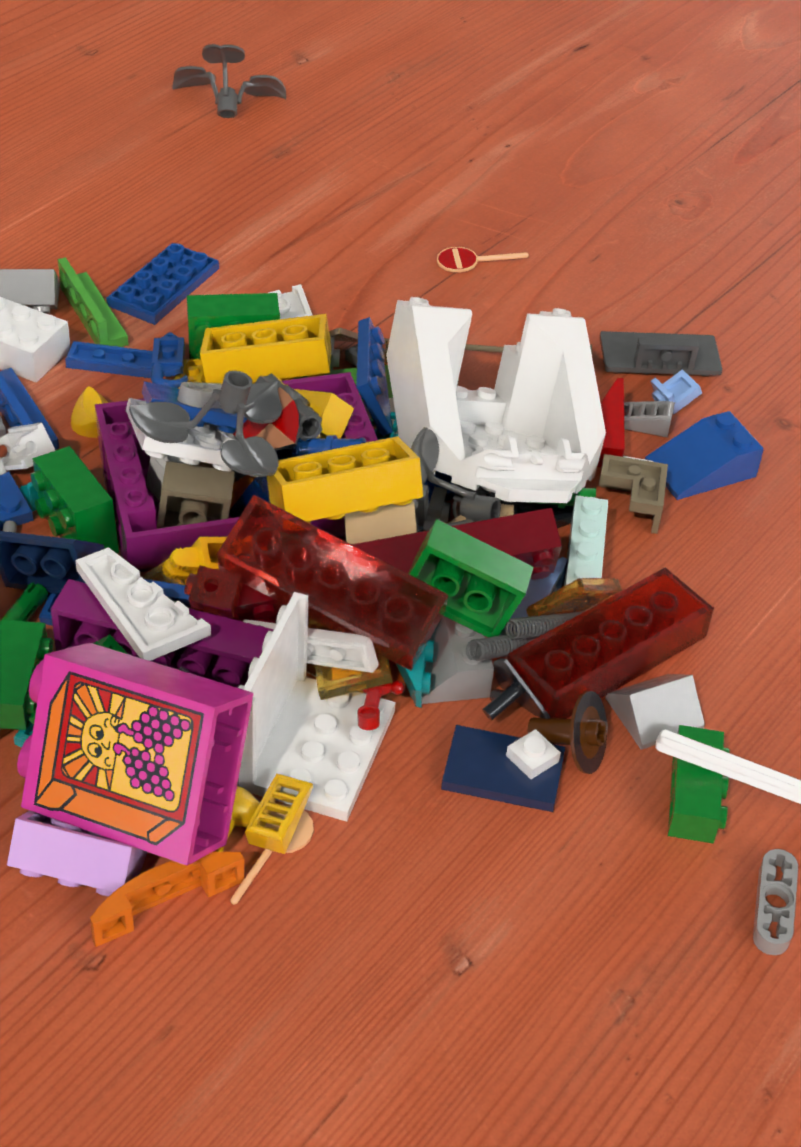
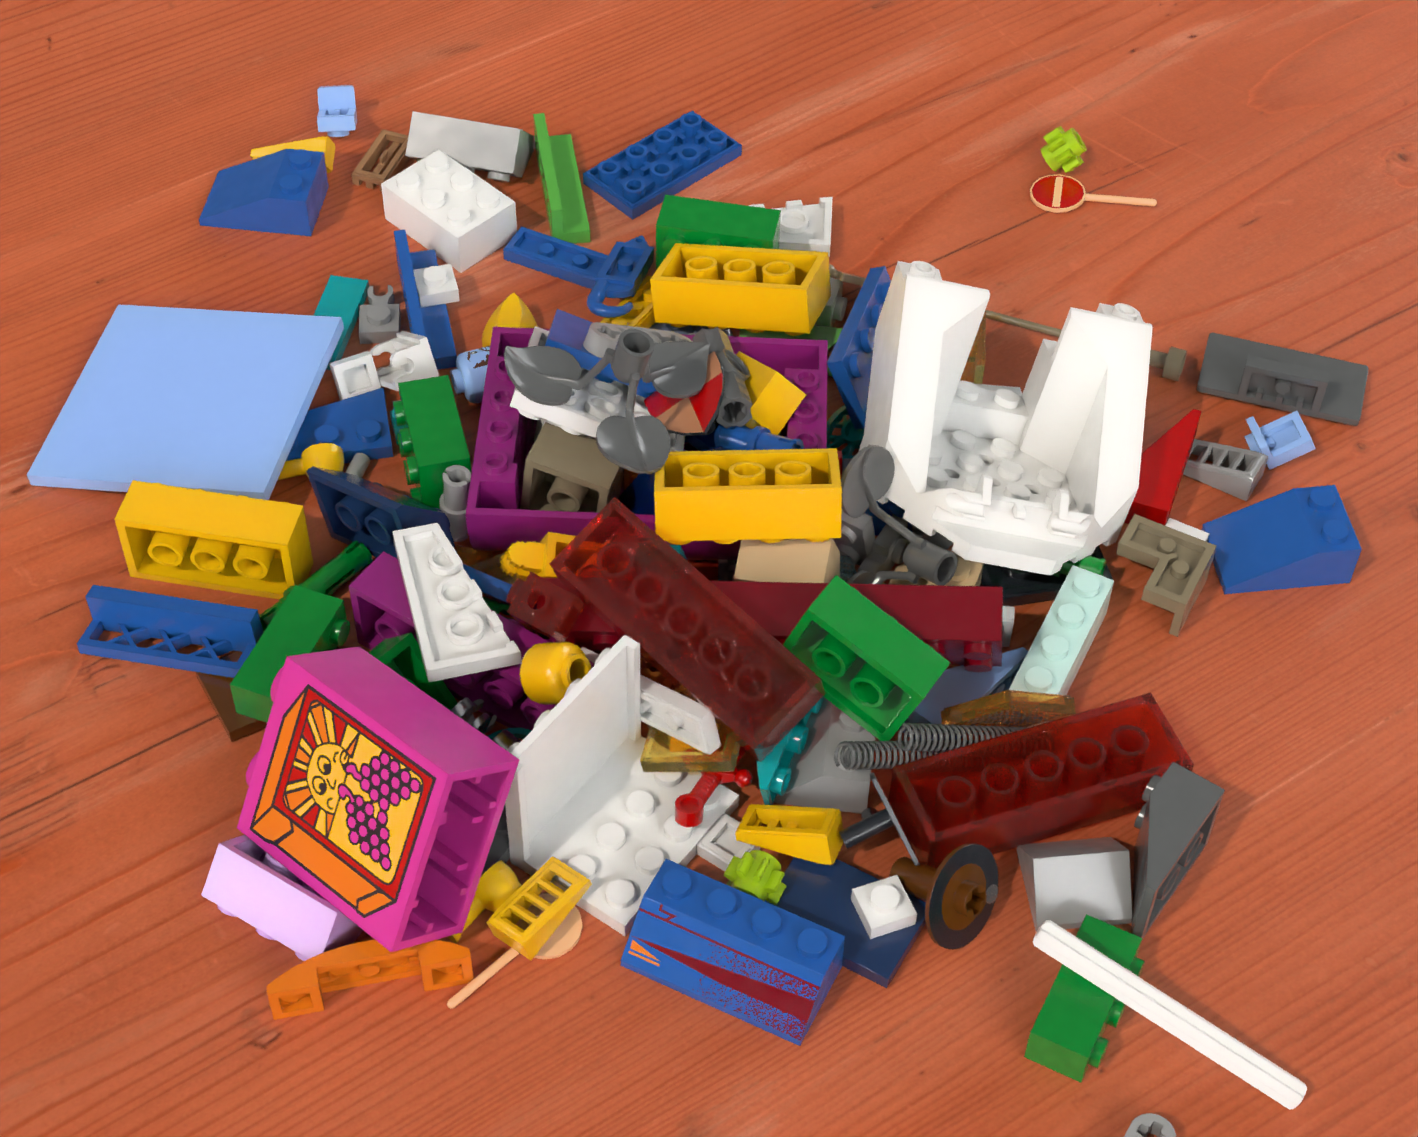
camera: 20 degrees right, 5 degrees up
(27, 390) = (436, 285): none -> white plate
(85, 444) = (471, 373): none -> light blue head
(107, 530) = (454, 500): none -> light grey pin
(242, 634) = (550, 670): none -> yellow head
(401, 739) = (721, 844): none -> white tile
(433, 757) = (757, 875): none -> lime gear
(435, 810) = (733, 951): none -> blue slope
(447, 716) = (794, 831): none -> yellow slope
(452, 228) = (1063, 149): none -> lime gear
(714, 660) = (1170, 839): none -> dark grey slope

